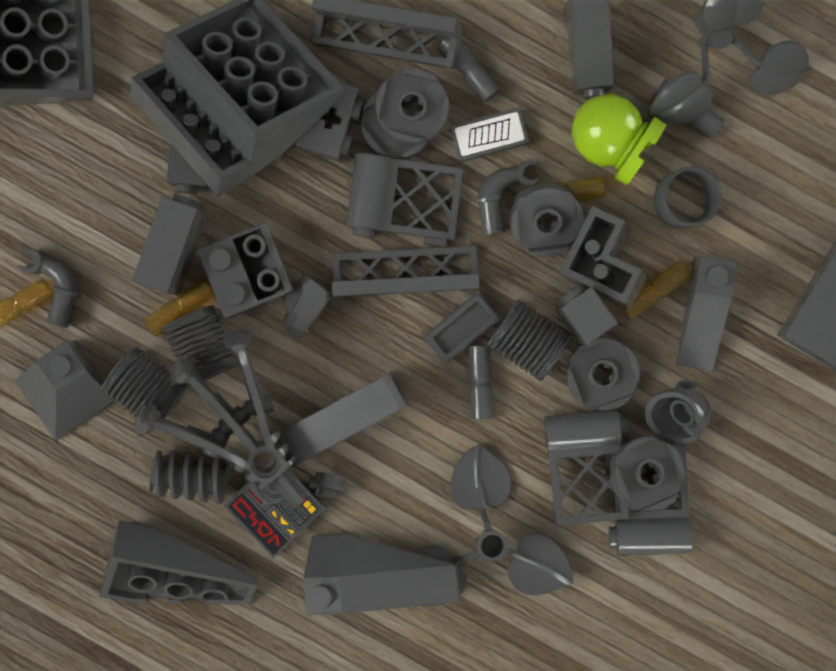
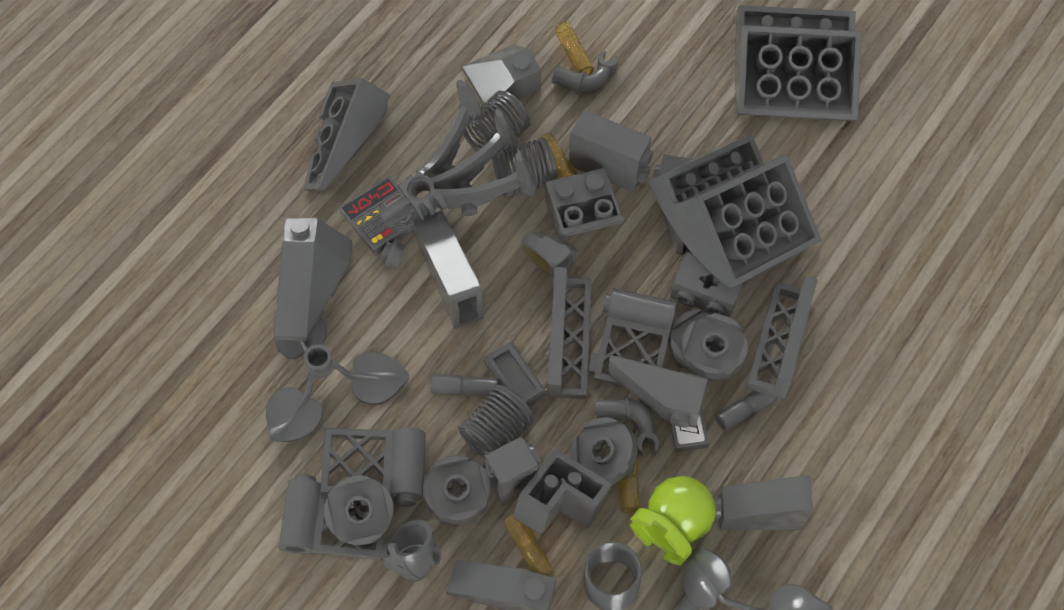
camera: 95 degrees right, 25 degrees down
(189, 478) = (416, 147): dark grey piece -> none
(475, 150) = (665, 391): none -> dark grey slope

